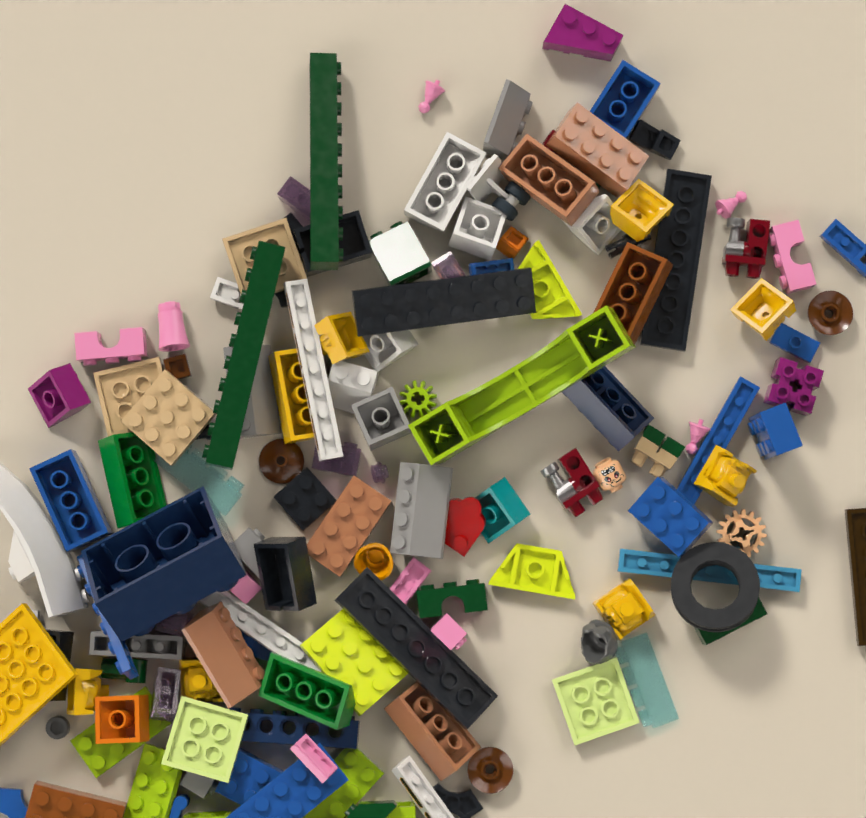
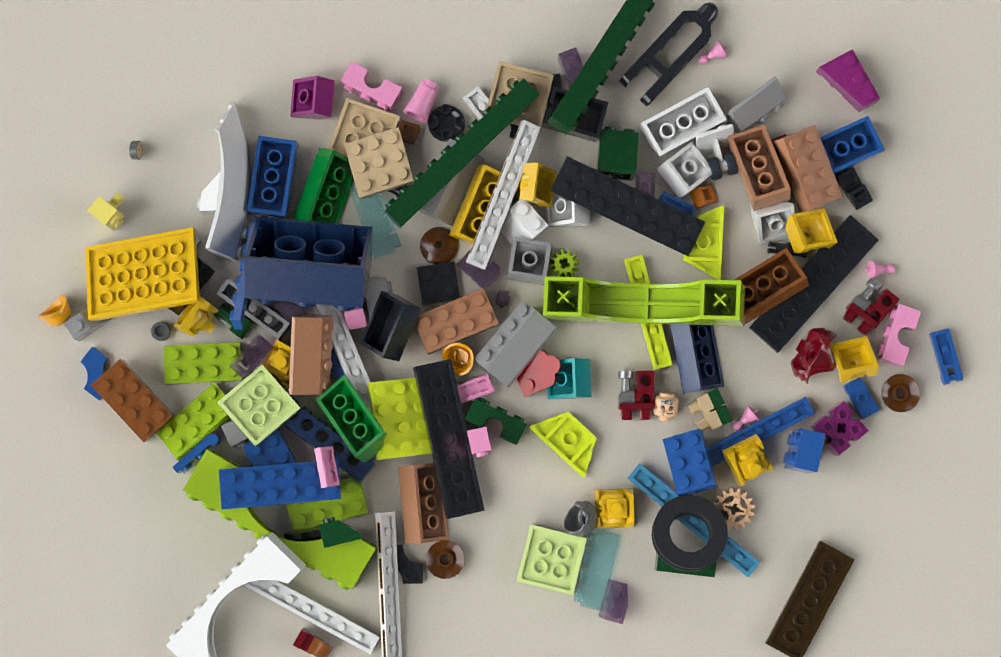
camera: 30 degrees right, 0 degrees up
(122, 719) = (210, 353): orange slope -> none
(209, 333) = (446, 123): none -> black dish
(397, 65) = (704, 18): none -> black piece
(550, 411) = (652, 333): none -> neon yellow plate
(685, 702) = (614, 602): none -> clear purple slope
(722, 330) = (814, 354): none -> dark red piece

